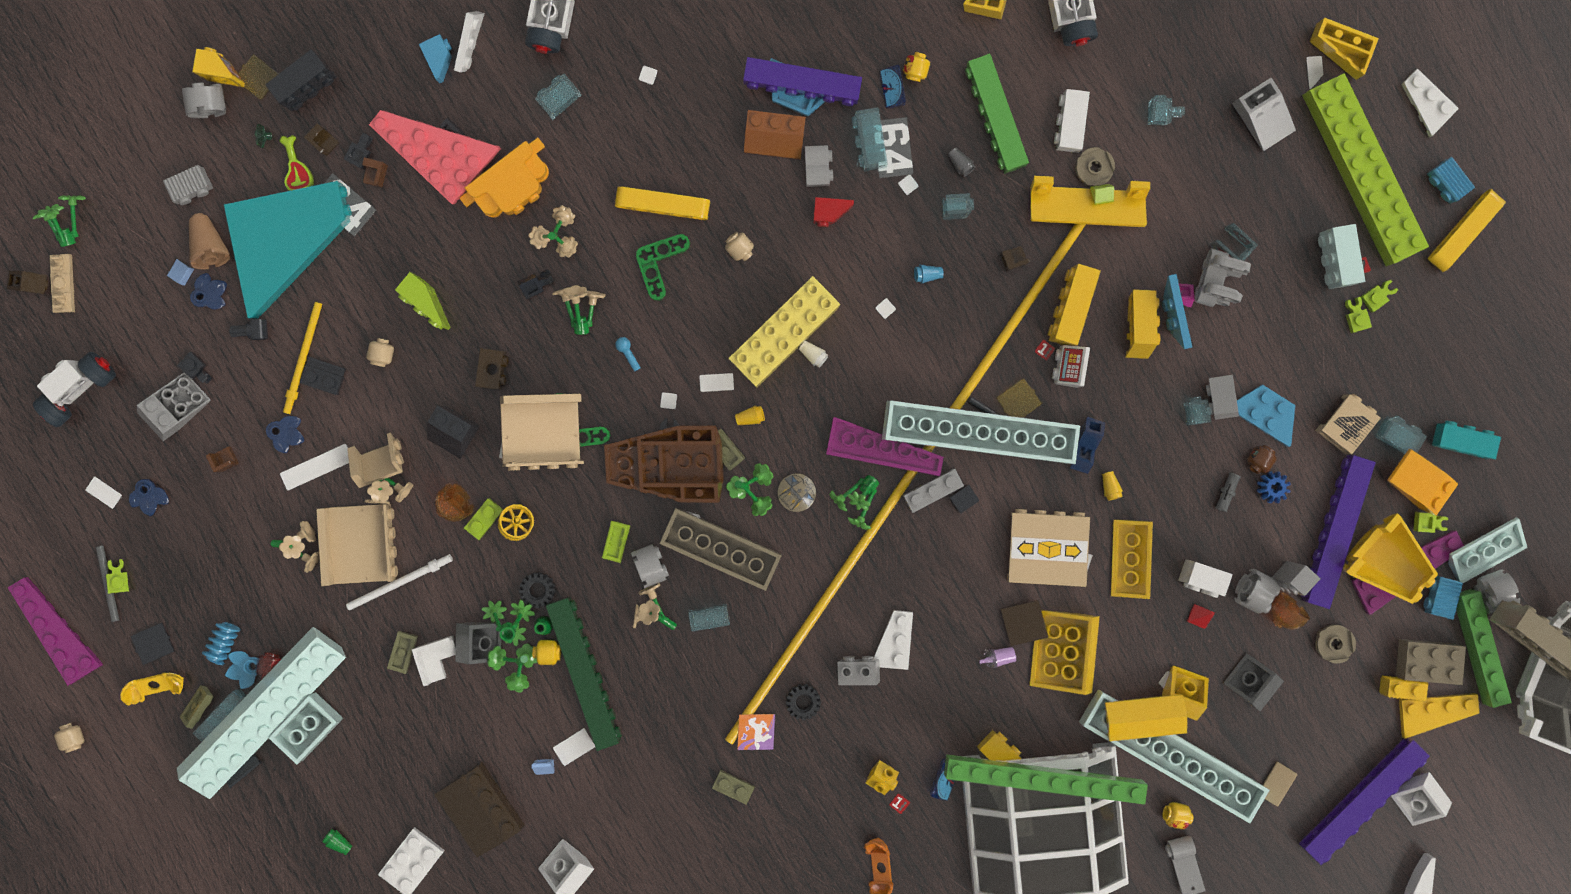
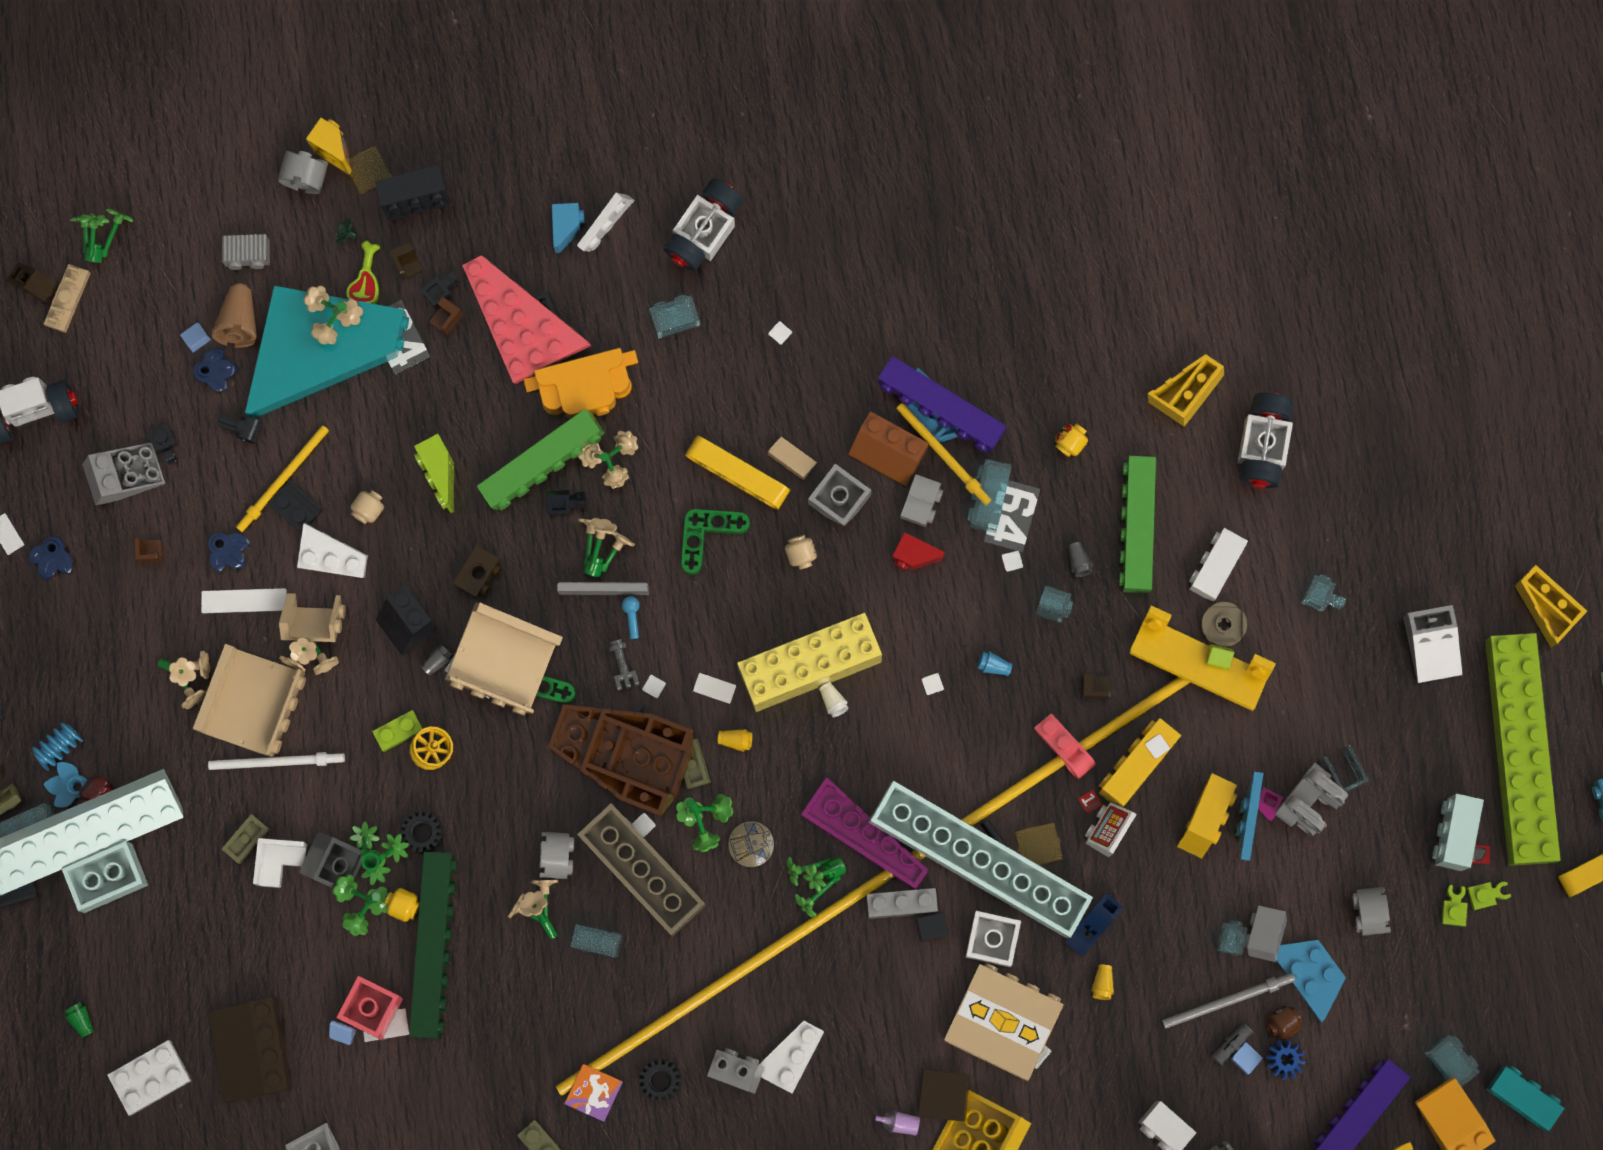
camera: 25 degrees right, 10 degrees down
(290, 202) = (347, 312): none -> tan plant
(365, 403) = (329, 555): none -> white wing
(452, 503) = (372, 699): clear orange cylinder -> none
(489, 450) = (437, 658): none -> flat silver cone
(501, 258) = (541, 459): none -> bright green brick
(547, 624) = (416, 875): green cone -> none
(556, 742) = (369, 1008): none -> coral brick
(595, 340) = (602, 588): none -> light grey tile
(616, 541) = (530, 815): lime plate -> none
(627, 382) = (617, 646): none -> dark grey hinge
(700, 173) = (792, 458): none -> tan slope
(706, 512) = (643, 825): none -> white sticker
(751, 189) = (839, 496): none -> light grey slope
(854, 137) = (972, 485): none -> yellow bar
(892, 86) = (1037, 450): slope -> none
(1010, 315) = (1065, 746): none -> coral plate
(1014, 489) = (993, 939): none -> white brick
(1085, 287) = (1157, 746): none -> white sticker
(1131, 559) = (1093, 1074): yellow slope -> none
(1240, 435) = (1270, 985): none -> light grey bar
(1243, 498) = (1246, 1058): none -> light blue slope
(1298, 346) = (1372, 911): none -> light grey brick
(1315, 70) = (1509, 618): white sticker -> none
(1349, 424) = (1398, 1023): tan panel -> none

